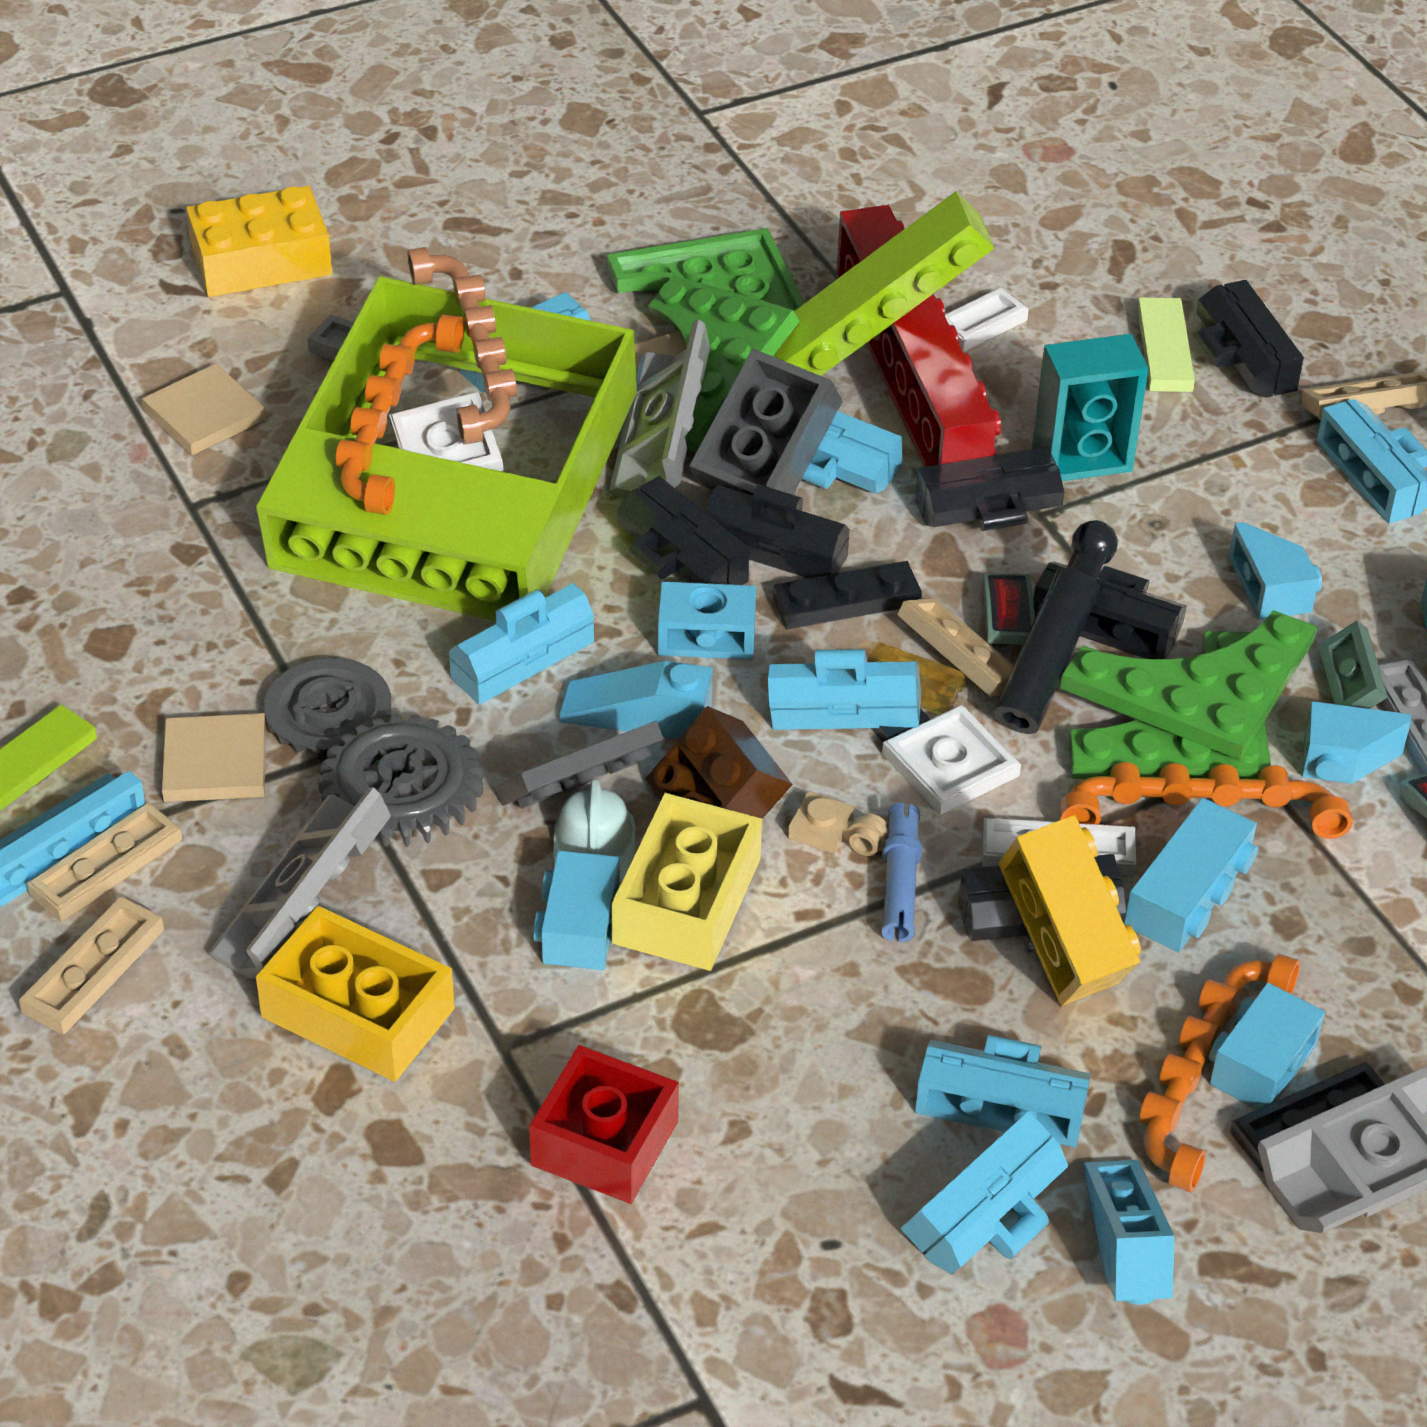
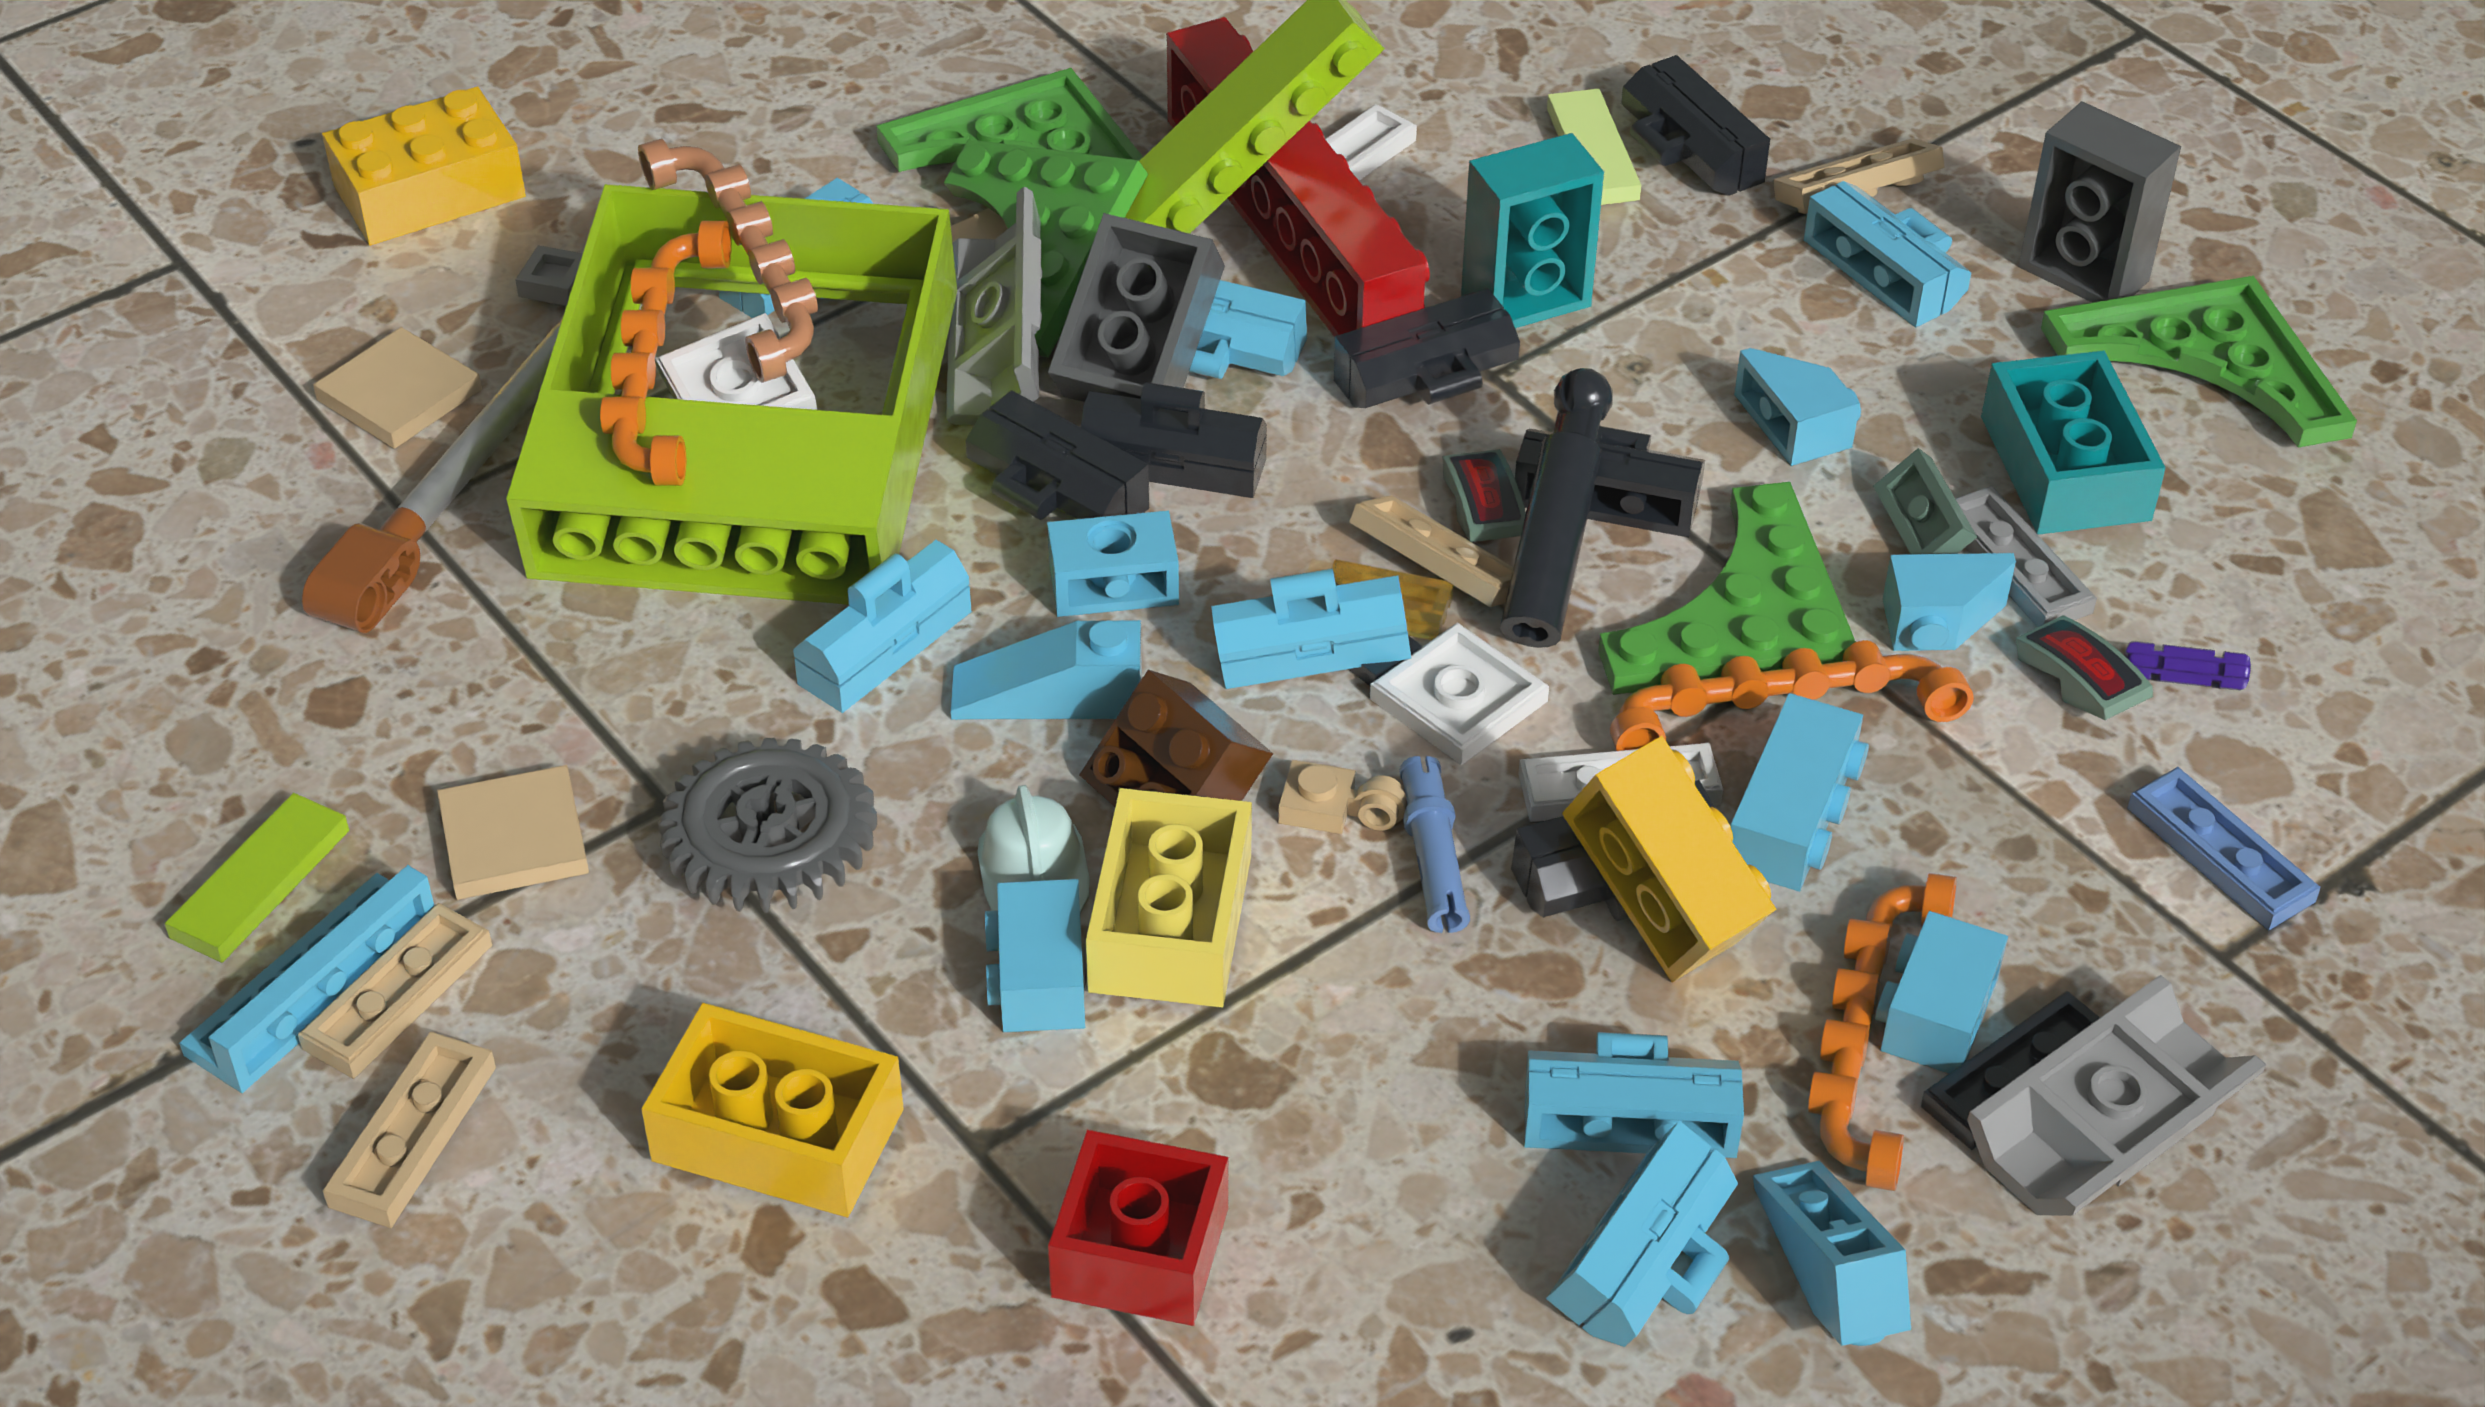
camera: 10 degrees left, 0 degrees up
(157, 543) = (375, 566): none -> piece
(292, 885) = (664, 977): light grey piece -> none
(343, 684) = (605, 734): dark grey gear -> none
(580, 767) = (999, 772): dark grey plate -> none
(845, 594) = (1277, 507): black plate -> none
(1204, 697) = (1757, 570): bright green plate -> none

